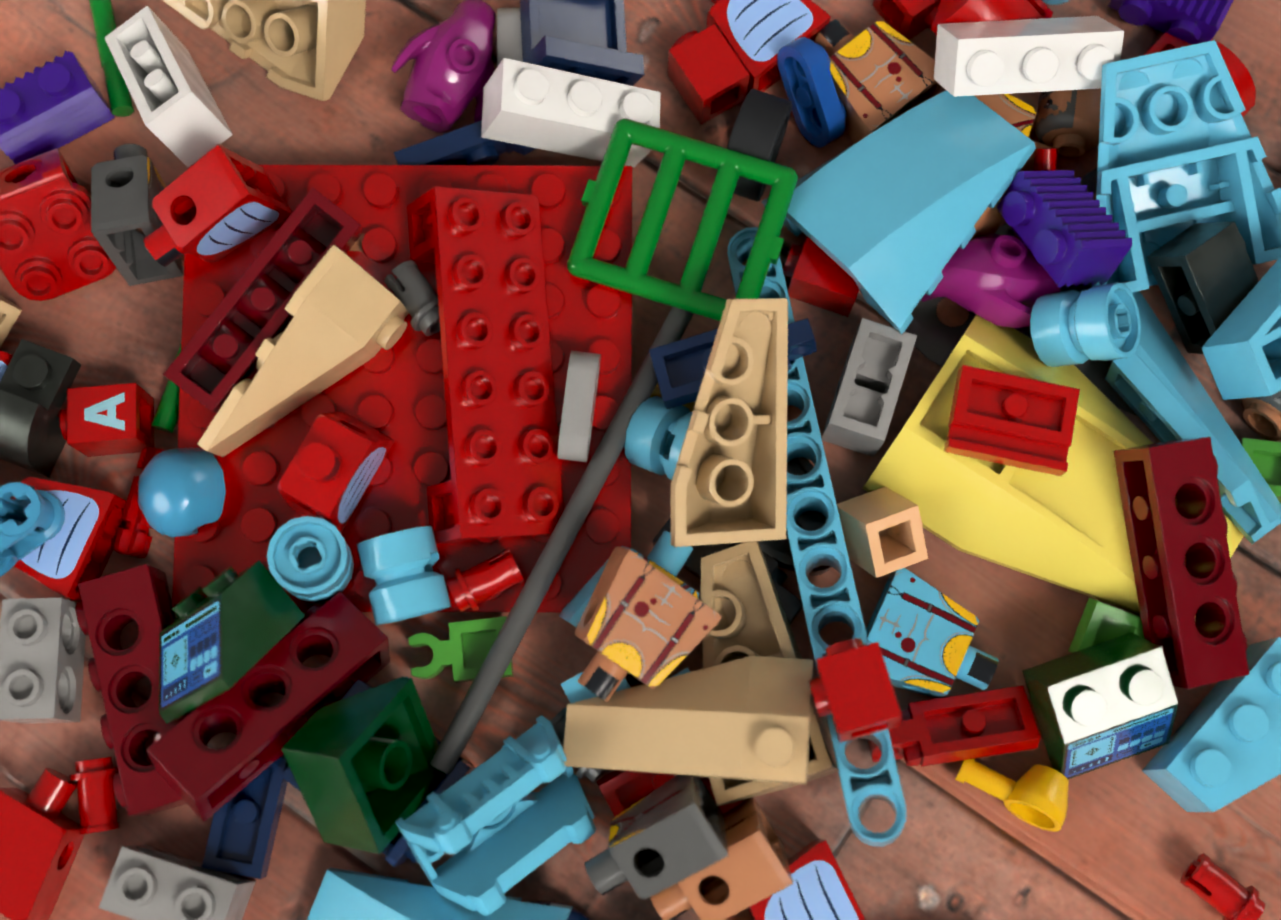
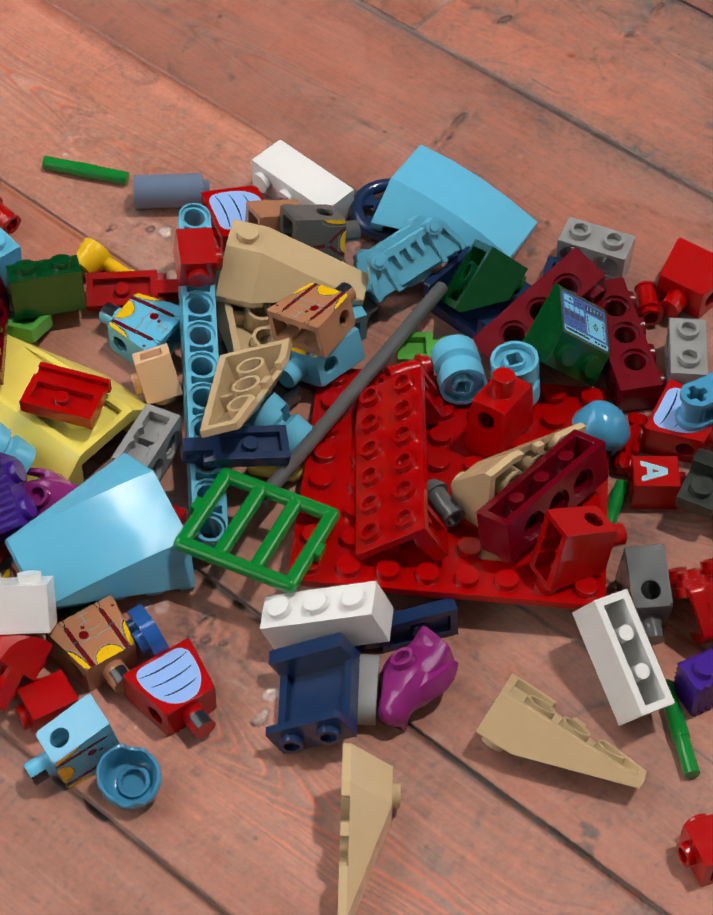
camera: 175 degrees left, 25 degrees down
(579, 406) = (340, 440): light grey beam -> none
(707, 73) = (222, 653): red brick -> none
(760, 134) = (195, 595): black tyre -> none

